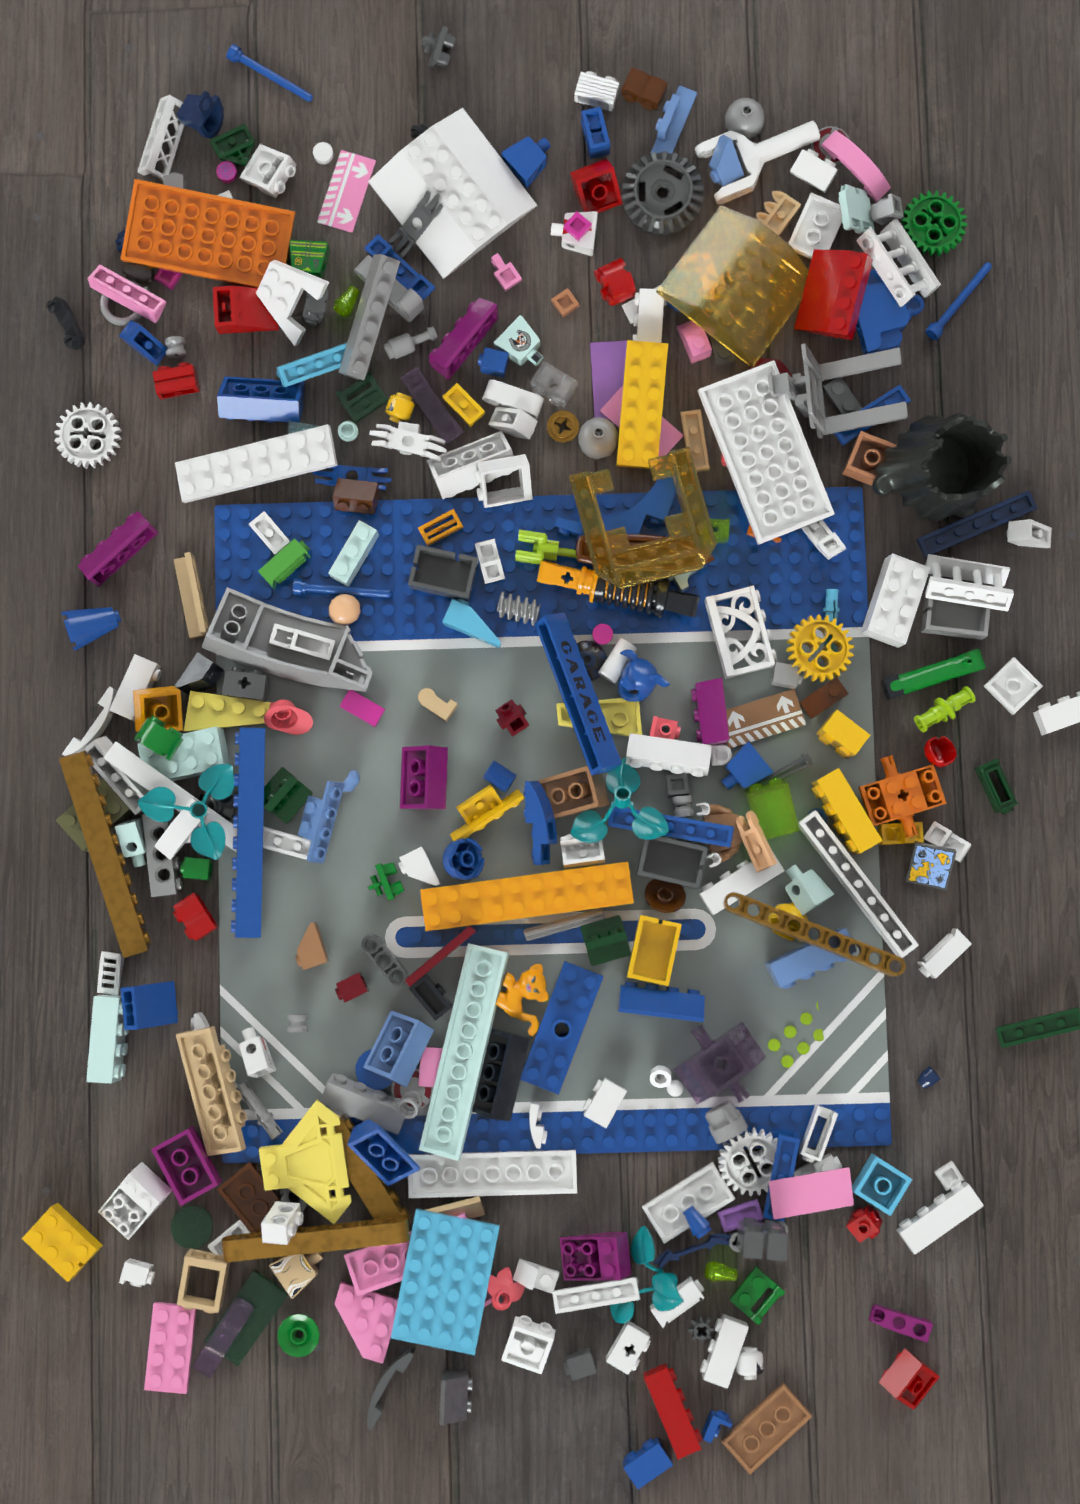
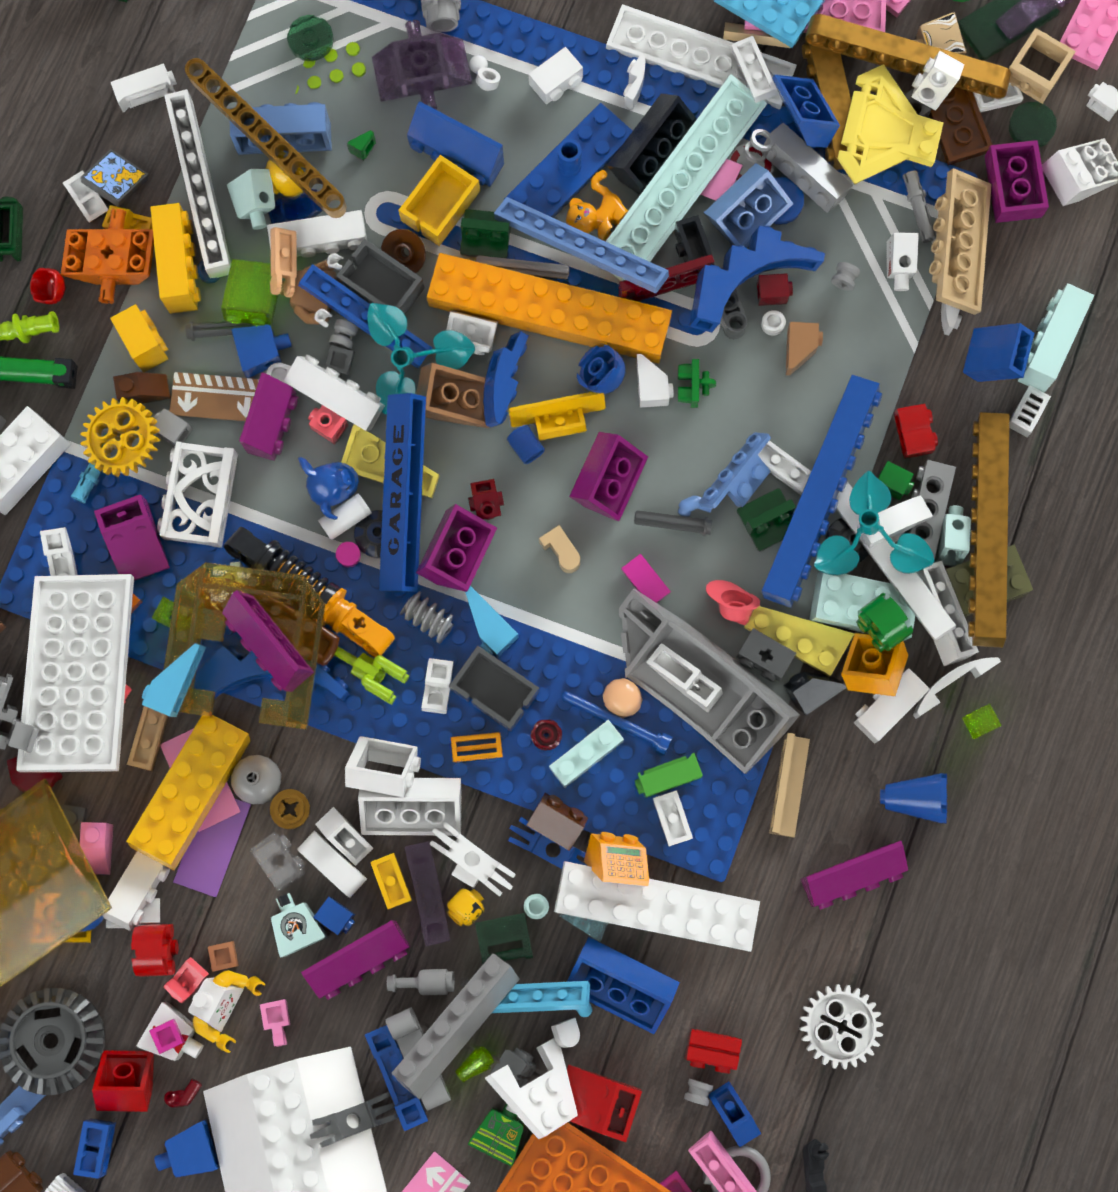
camera: 160 degrees left, 5 degrees down
(61, 704) = (981, 721): none -> clear neon green brick
(288, 350) = (566, 1033): none -> white tile
(297, 482) = (617, 859): none -> light orange slope
(342, 961) = (773, 322): none -> white tile
(358, 762) = (673, 522): none -> dark grey axle
(386, 552) = (546, 726): none -> dark red plate
(395, 962) = (740, 264): none -> blue arch
(440, 1174) = (754, 69): none -> white plate
(517, 668) = (456, 549): none -> magenta slope
(519, 953) = (582, 245): none -> medium blue plate
(550, 194) = (183, 1097): none -> dark red arm
(553, 266) = (215, 1003): none -> torso
(583, 272) = (186, 980): none -> coral bracket
(624, 524) = (266, 641): none -> magenta slope
(684, 463) = (170, 686): none -> medium azure slope
(738, 974) = (362, 145): none -> green slope
(771, 894) = (294, 209): none -> clear blue slope
(774, 575) = (132, 537): none -> magenta slope
(825, 1054) = (310, 38): none -> clear green tile

